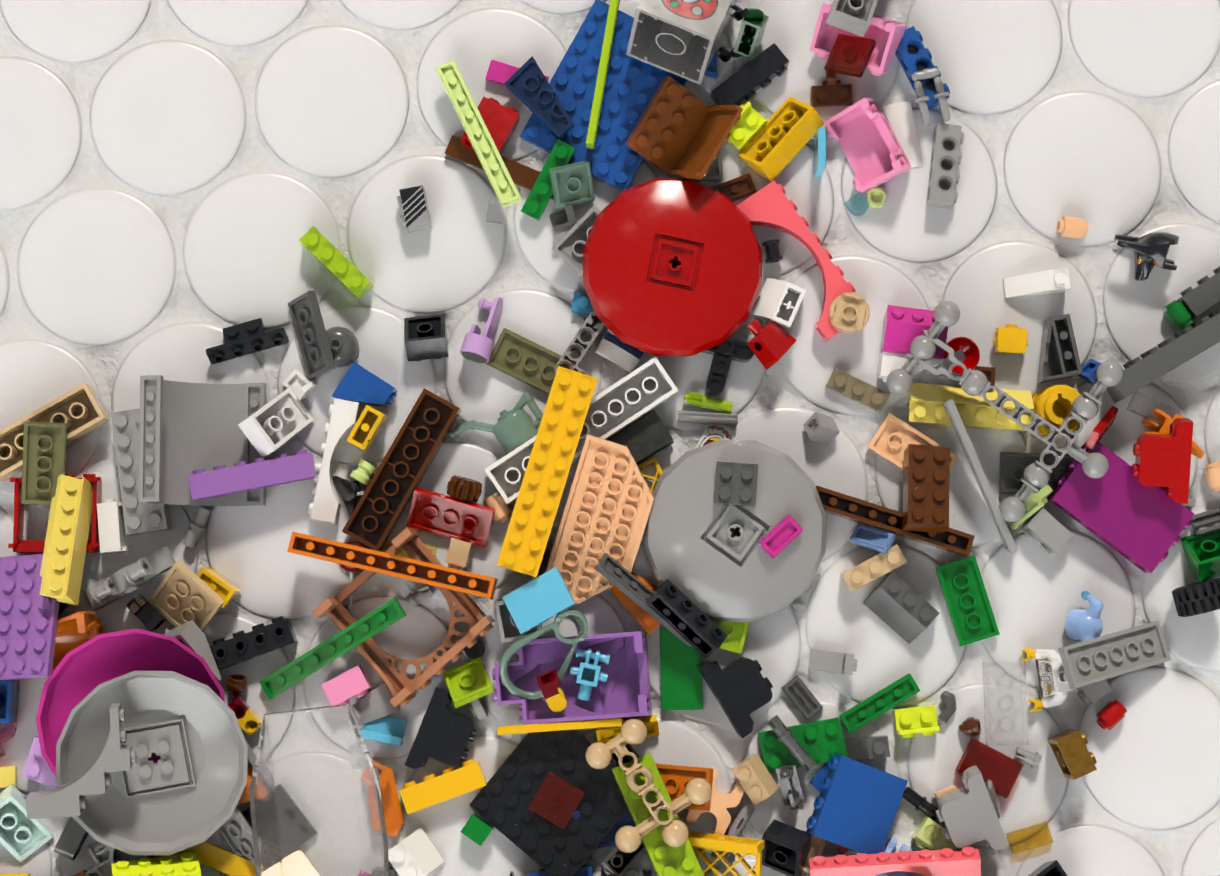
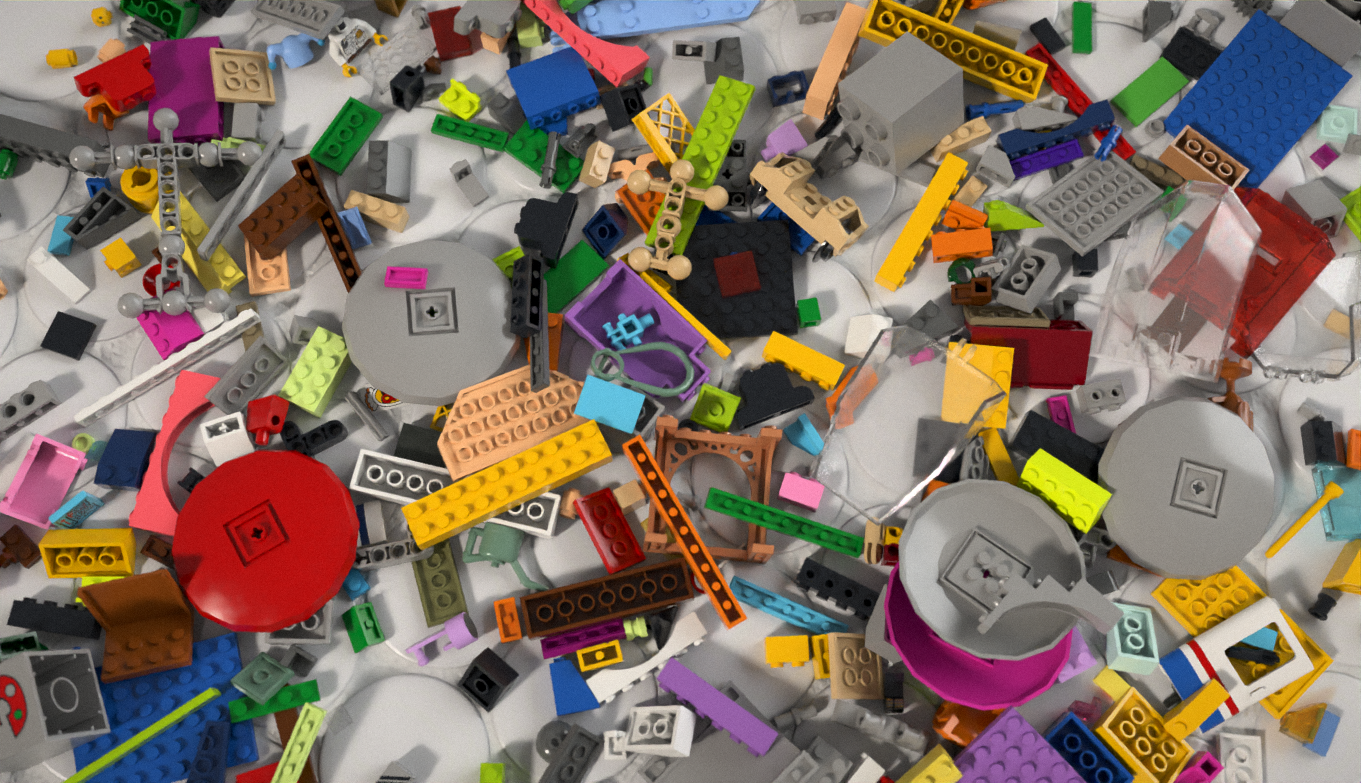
camera: 135 degrees left, 10 degrees down
(237, 684) = (876, 573): reddish brown plate -> none
(246, 564) = (786, 650): none -> yellow brick
(258, 702) = (873, 542): none -> tan arm
(275, 593) = (784, 608): none -> medium azure tile
(390, 427) = (582, 638): none -> magenta plate
(455, 387) = (508, 620): none -> orange plate
(464, 488) = (578, 539): reddish brown gear -> none
(546, 283) = (362, 627): none -> green panel
(553, 695) = (662, 343): dark red leg -> none
(691, 736) = (606, 228): none -> dark blue slope
(708, 402) = (353, 425): lime piece -> none
(736, 484) = (394, 339): dark grey plate -> none
(774, 410) = (317, 373): none -> yellowish green brick
(795, 702) = (510, 199): dark grey tile -> none
(815, 354) = (247, 377): none -> light grey tile
(832, 218) = (125, 460): none -> dark blue slope
(849, 312) = (192, 380): tan tile -> none
(878, 313) = (167, 368): none -> white plate
(964, 682) = (407, 86): none -> black torso
(978, 252) = (68, 335): none -> black tile
(1079, 316) = (60, 241): none -> medium azure tile
(1094, 561) = (242, 76): none -> tan plate
(1102, 427) = (138, 138): red tile -> none

